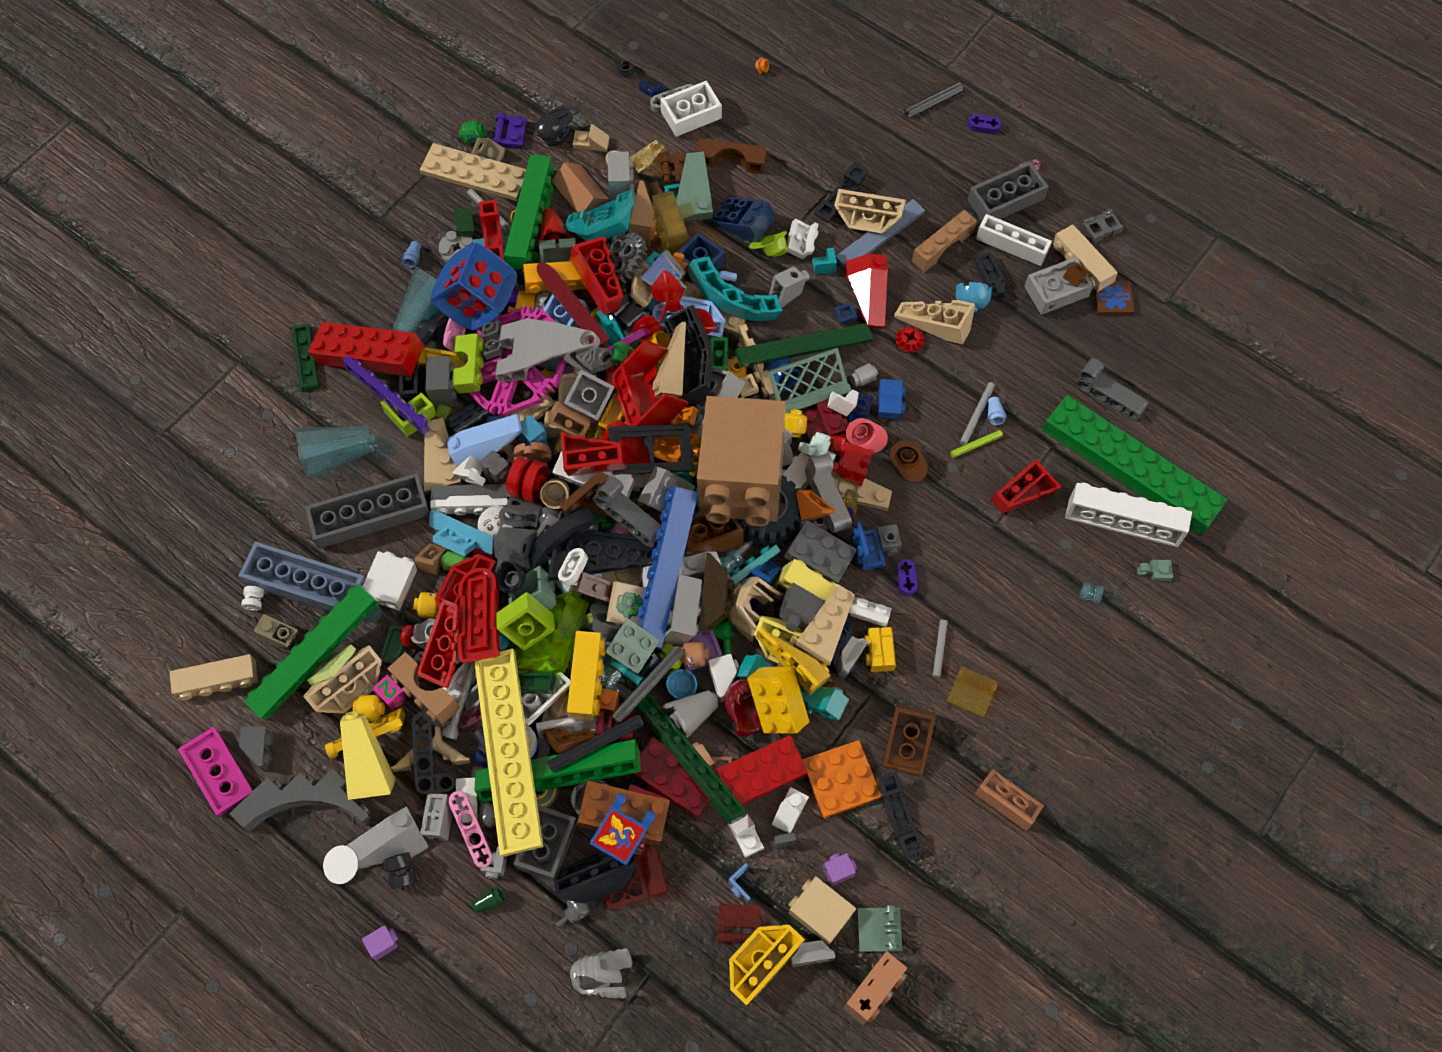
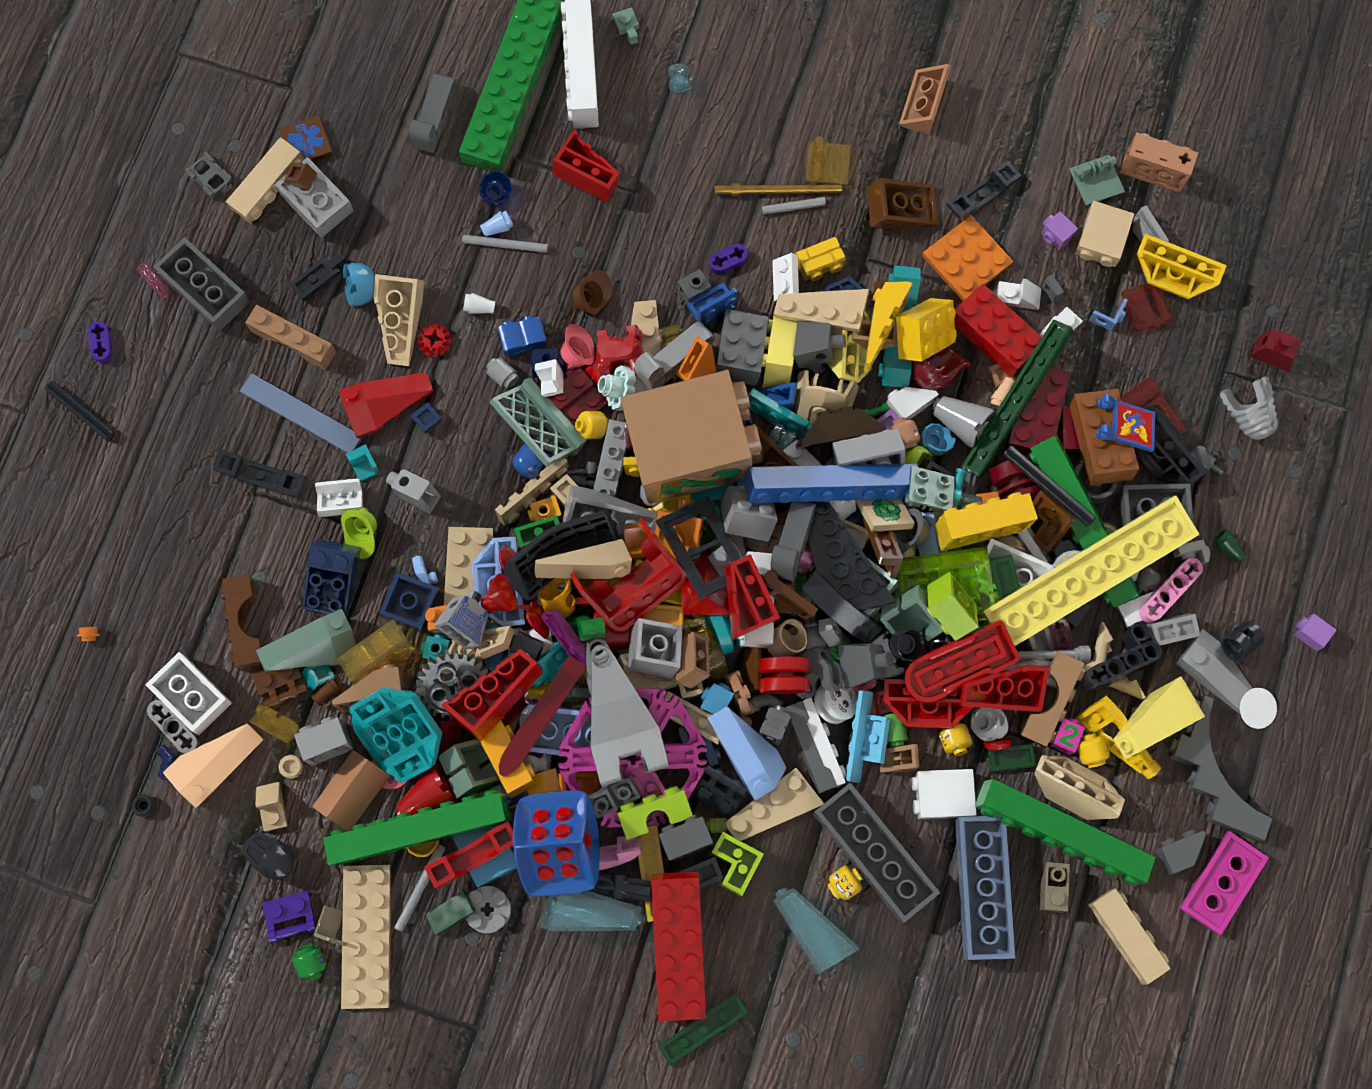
camera: 110 degrees left, 10 degrees up
(252, 598) = (1026, 938): white wheel -> none
(331, 665) = (1072, 801): yellowish green tile -> none
(356, 481) = (845, 882): none -> yellow head
(381, 390) = (729, 897): dark purple plate -> none
(412, 255) = (517, 959): medium blue cone -> none
(470, 471) = (789, 754): white slope -> none
(480, 759) = (1095, 610): clear blue arm -> none
(573, 566) = (877, 575): white plate -> none
(634, 105) = (206, 767): none -> light nougat wedge
(645, 687) = (963, 460): dark grey axle -> none
(648, 1026) = (1276, 349): none -> dark red torso
(730, 298) = (456, 564): teal brick -> none
(803, 345) = (493, 443): dark green tile -> none
(850, 655) = (841, 279): light grey slope -> none
(868, 211) = (279, 428): tan wedge -> none
(929, 376) = (477, 304): none -> white cone
(969, 607) = (737, 189): none -> pearl gold bar
(977, 443) = (543, 234): lime bar -> none
(1013, 240) = (266, 261): white brick -> none
(1027, 416) = (495, 188): none -> clear blue hair

